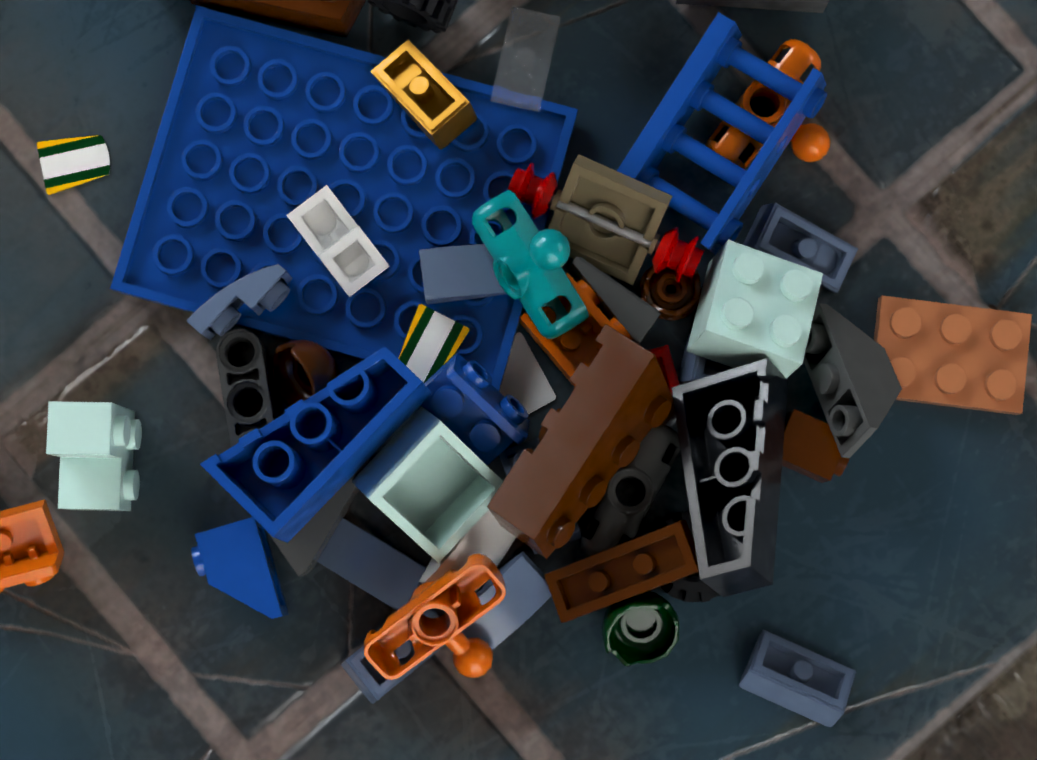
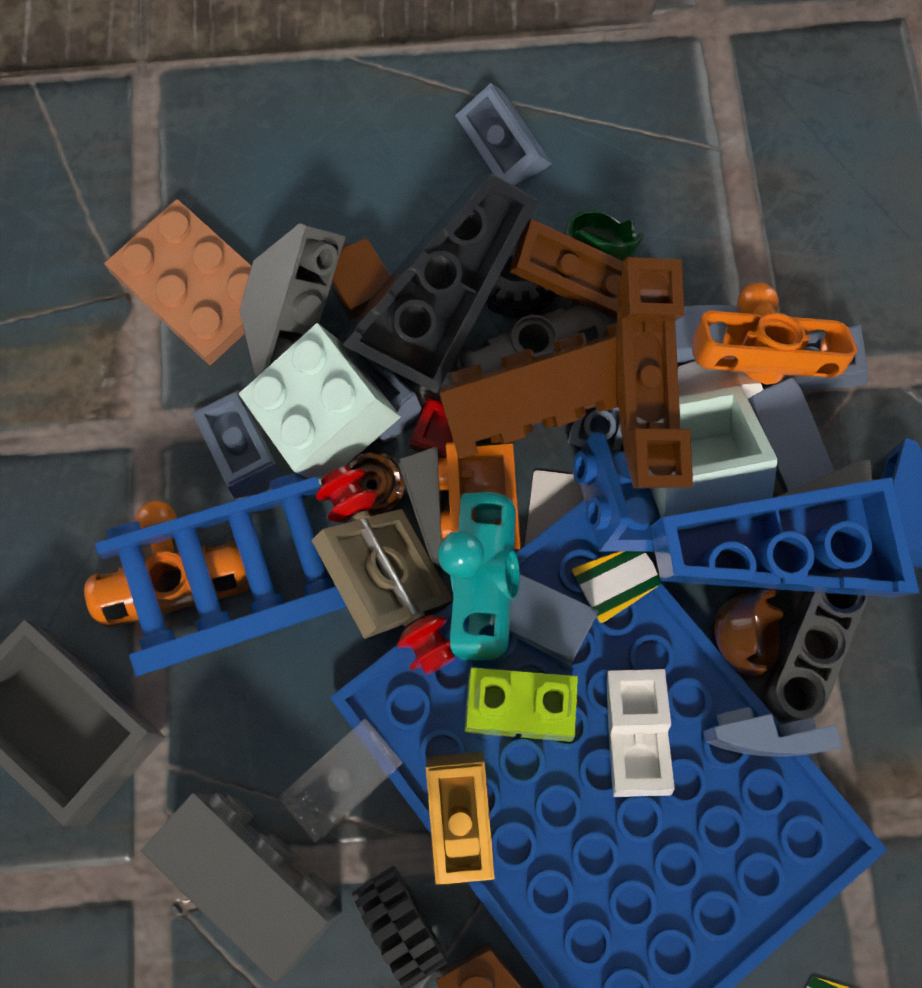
camera: 145 degrees left, 10 degrees down
(437, 185) = (522, 704): none -> lime hips
(506, 489) = (647, 373): none -> reddish brown slope

